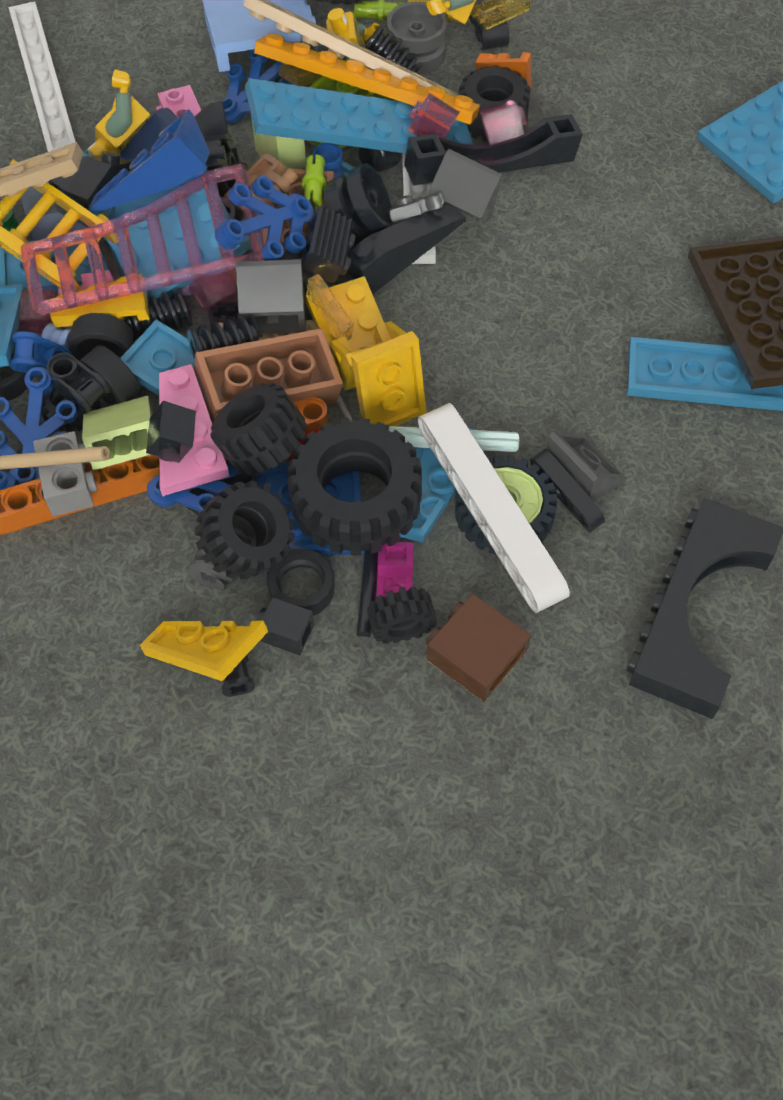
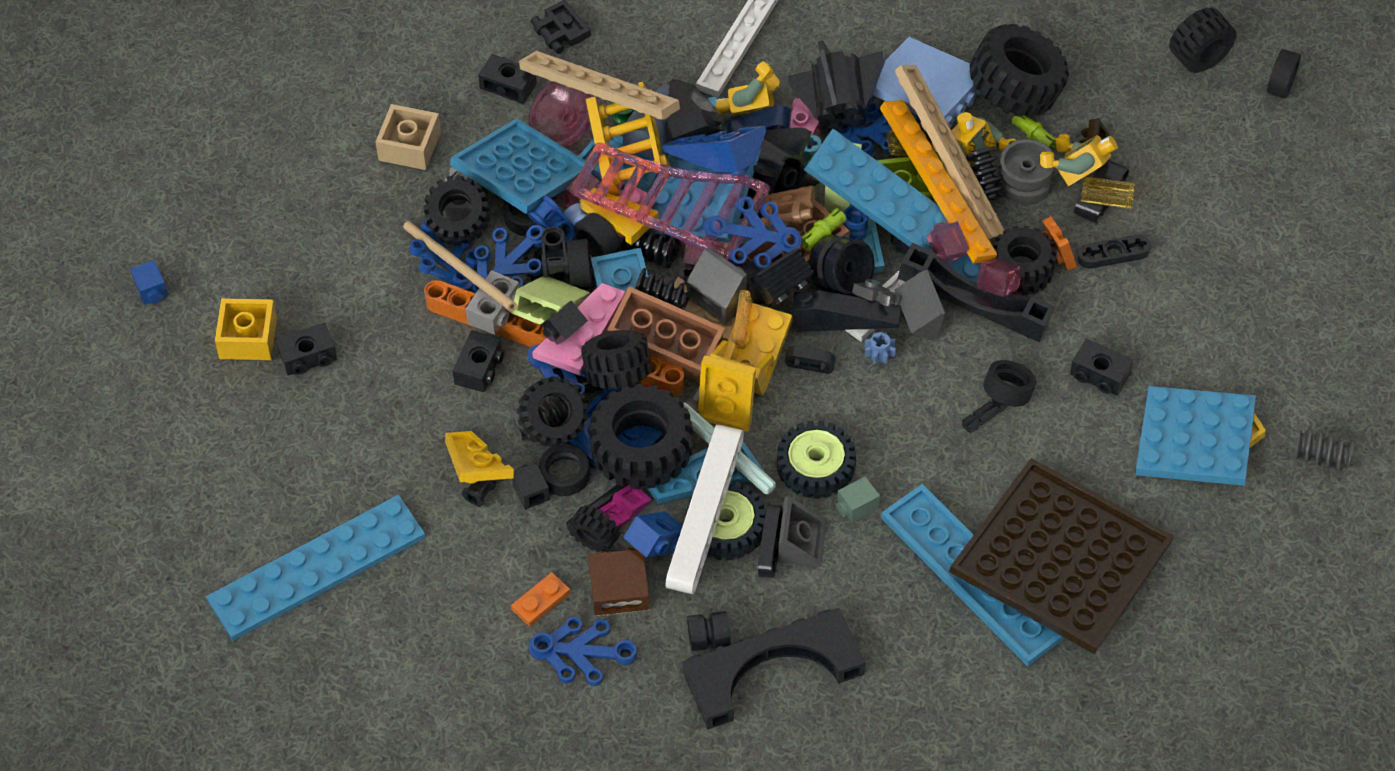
camera: 45 degrees right, 5 degrees down
(94, 529) = (478, 348): none -> black brick
(137, 922) = (315, 567): none -> dark azure plate
(195, 61) = (839, 87): none -> black brick
(413, 306) = (810, 359): none -> black beam
(417, 733) = (540, 599): none -> orange plate
(460, 253) = (880, 347): none -> medium blue gear
(470, 570) = (654, 534): none -> blue brick
(497, 383) = (816, 477): none -> wheel
(511, 752) = (579, 650): none -> blue plant
(548, 46) = (1119, 244): none -> black beam
(595, 392) = (857, 500): none -> sand green brick
(601, 202) = (1006, 393): none -> black tyre
(603, 245) = (982, 415): none -> black axle
(615, 622) = (708, 631): none -> black wheel
(649, 141) = (1093, 356): none -> black brick

